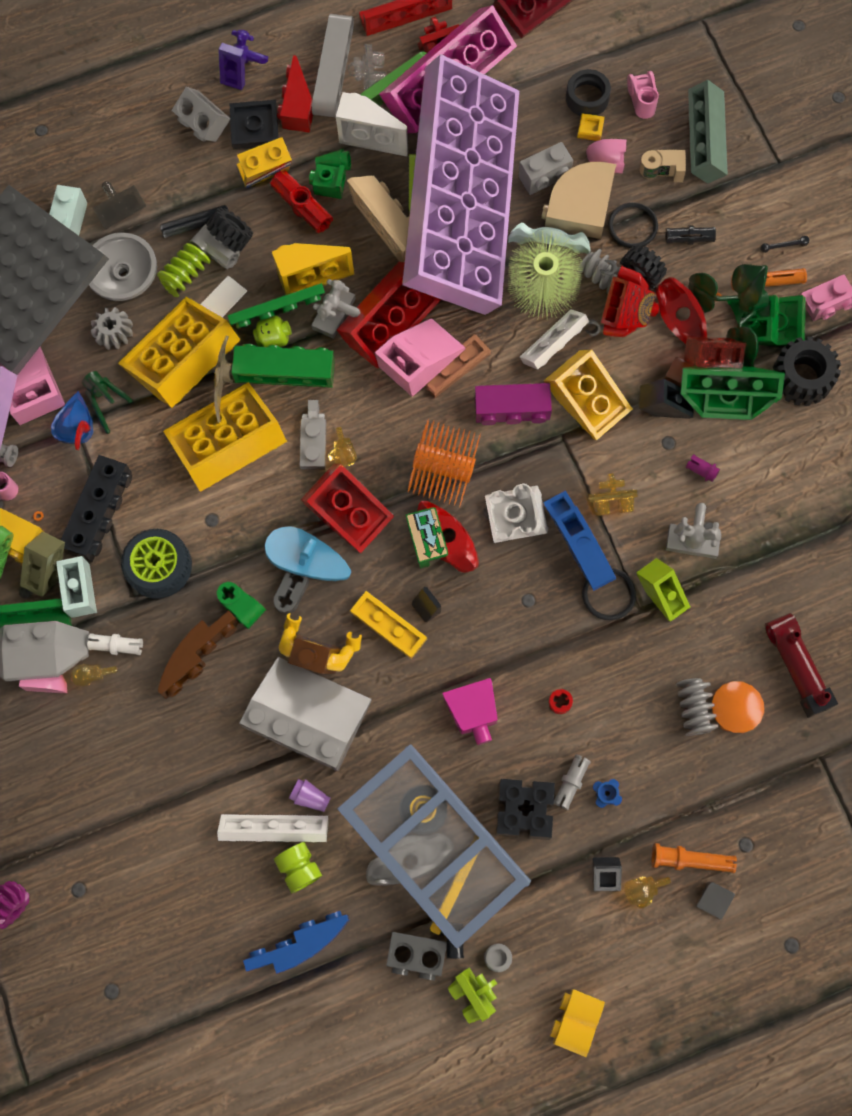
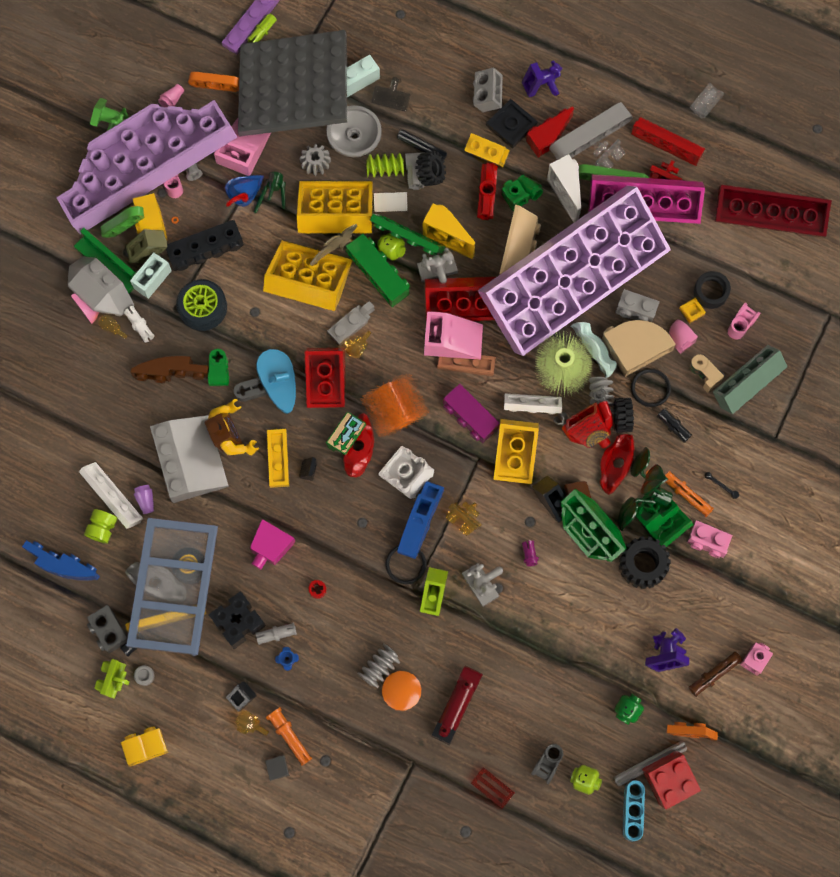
camera: 45 degrees right, 0 degrees up
(714, 352) = (605, 499): clear red brick -> none

